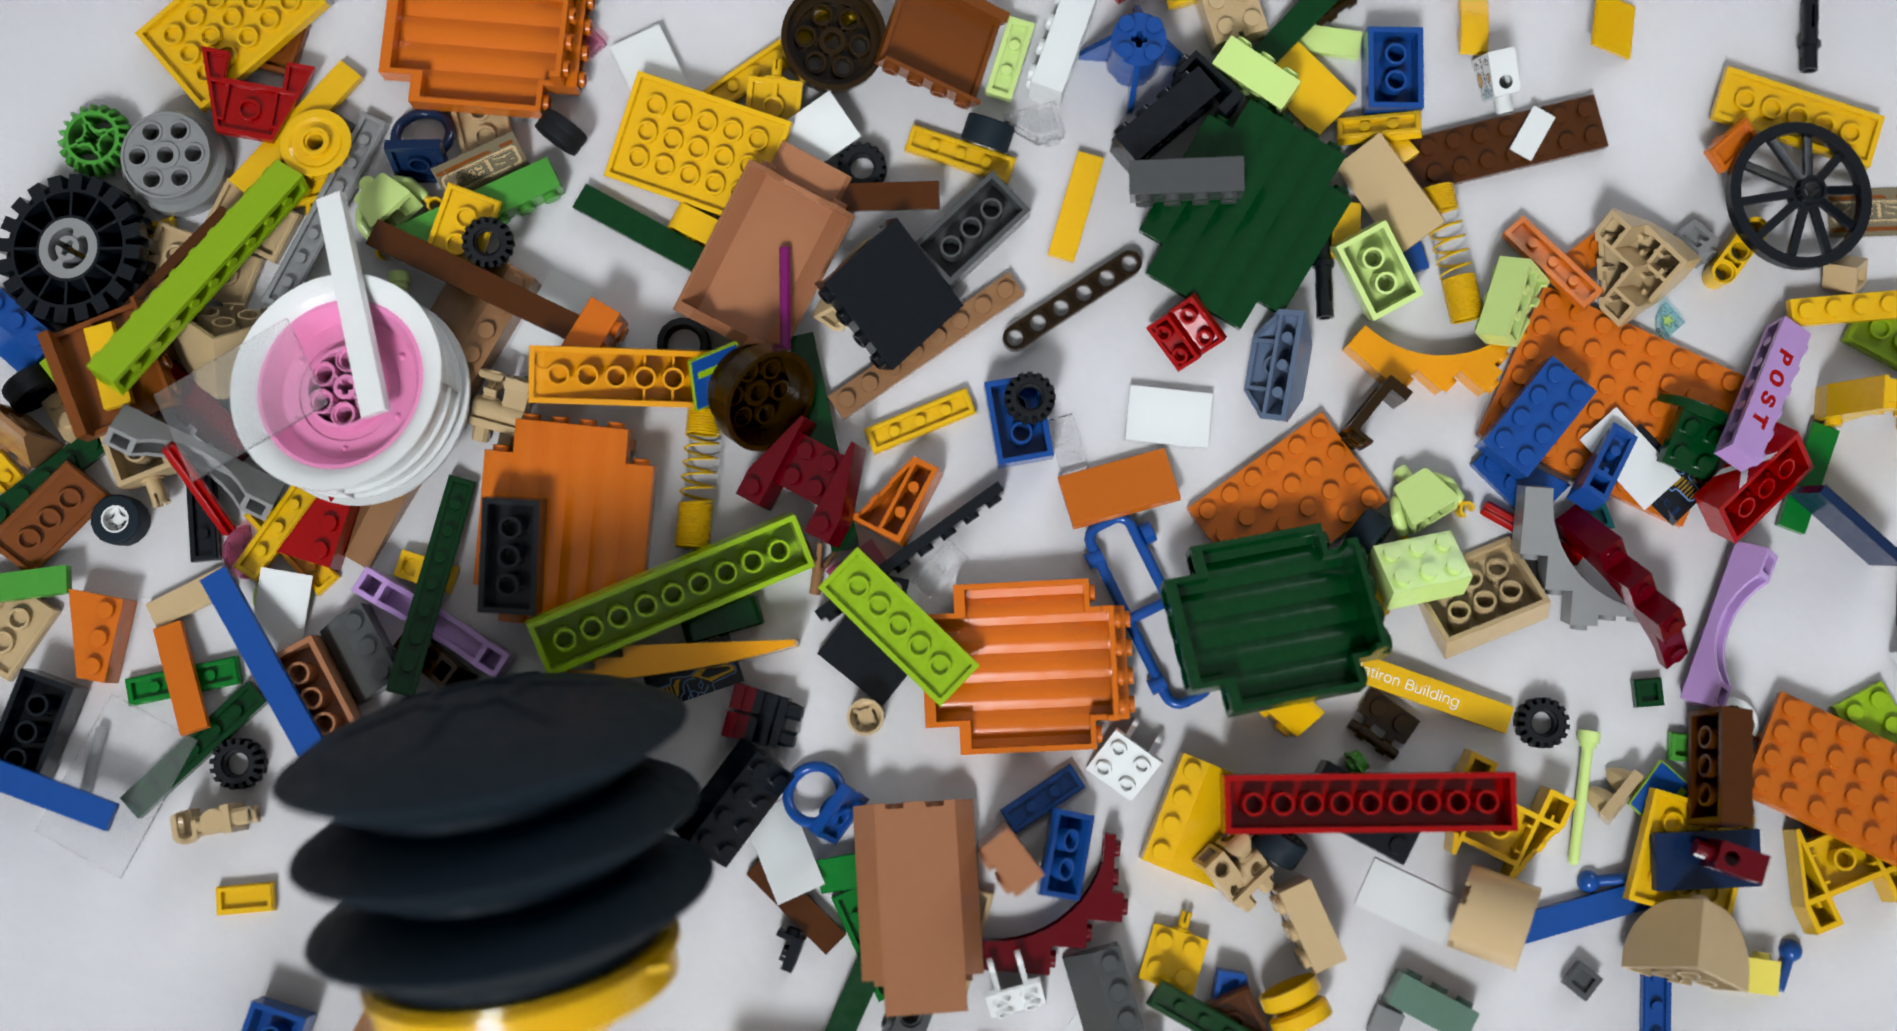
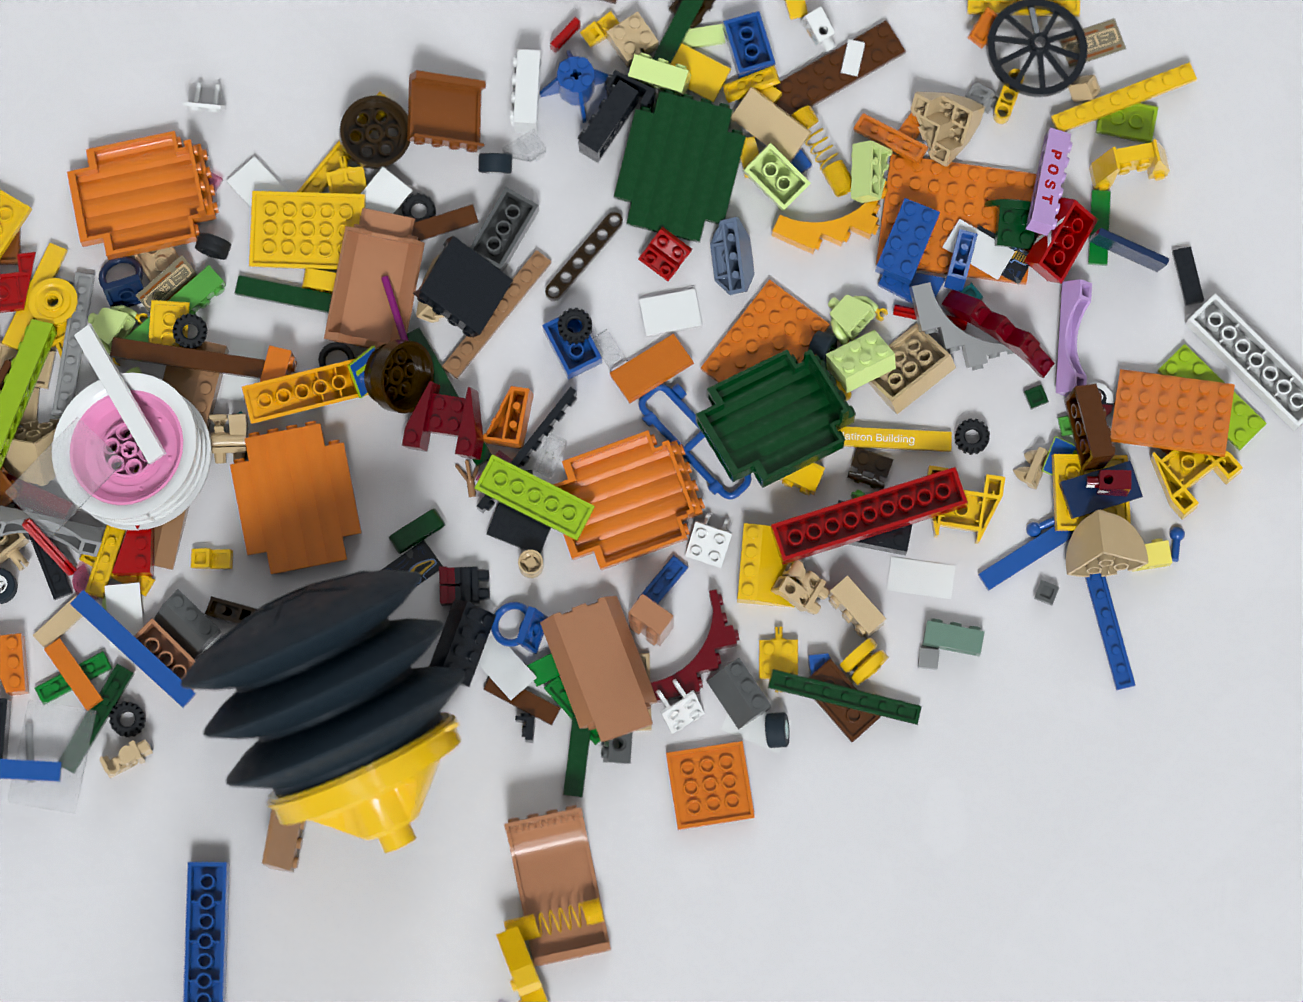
camera: 15 degrees left, 5 degrees down
(246, 898) = (159, 805): yellow tile -> none
(431, 586) = (219, 563): dark green tile -> none
(448, 630) = (221, 587): lavender arch -> none
(511, 555) = (270, 525): black brick -> none
(667, 659) = (416, 553): light orange slope -> none
(669, 593) = (381, 518): lime brick -> none
(695, 516) = (378, 468): yellow piece -> none
(920, 421) = (507, 364): yellow tile -> none
(958, 153) = (479, 182): yellow tile -> none
(1010, 59) = (495, 110): yellowish green plate -> none
(1065, 854) = (687, 611): blue slope -> none
(1075, 207) = (567, 194): yellow tile -> none
(1186, 180) = (633, 156): dark grey brick -> none
(1282, 849) = (825, 564): black wheel -> none
(1323, 283) = (745, 194): black pin -> none
(1389, 391) = (807, 252): dark brown panel -> none
(1494, 917) = (973, 564): tan brick -> none
(1588, 741) = (1006, 440): yellowish green piece -> none
(1667, 321) = (978, 153): clear light blue tile -> none

